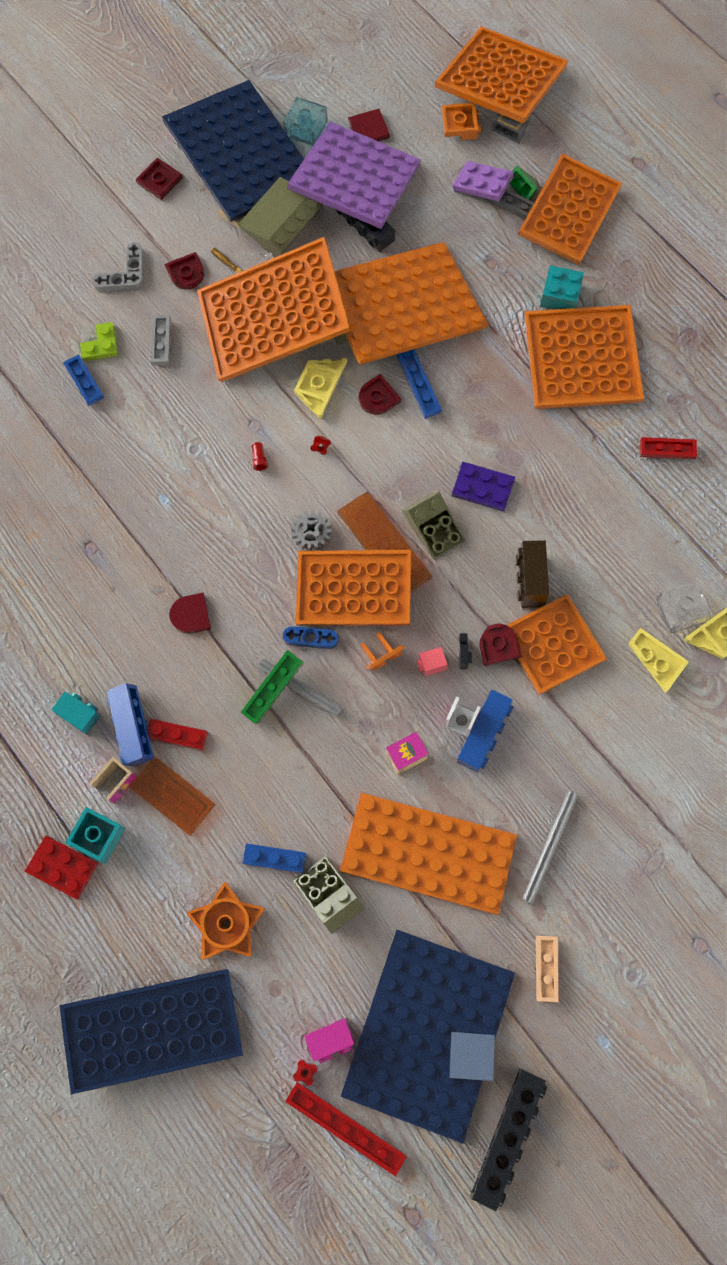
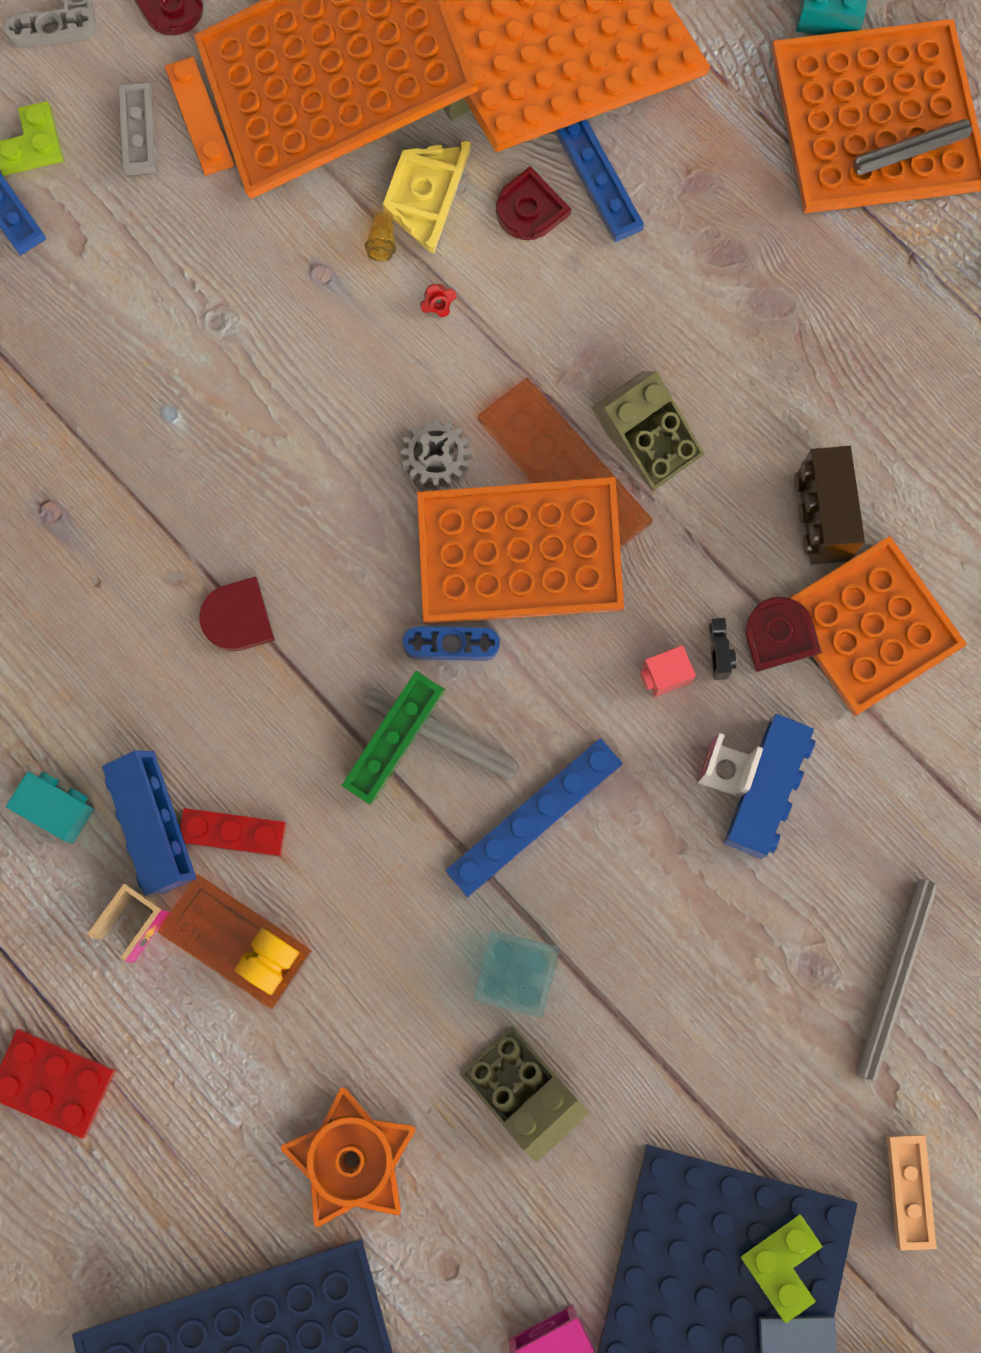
camera: 10 degrees left, 5 degrees up
(95, 835) = (106, 1024): teal brick -> none
(188, 806) = (266, 961): none -> yellow wheel
(196, 335) = (199, 116): none -> orange plate
(259, 459) = (332, 333): red pin -> none
(274, 858) = (423, 1037): blue plate -> none
(291, 409) = (381, 239): none -> clear yellow cone
(329, 825) = (516, 973): none -> clear light blue brick
(348, 739) = (533, 817): none -> blue plate
(391, 653) = (577, 681): orange plate -> none
(407, 753) = (639, 835): dark pink piece -> none
(429, 853) = (691, 1007): orange plate -> none
(462, 1001) = (773, 1266): none -> lime plate
(483, 486) = (727, 355): dark purple plate -> none
(599, 375) = (912, 146): none -> dark grey axle

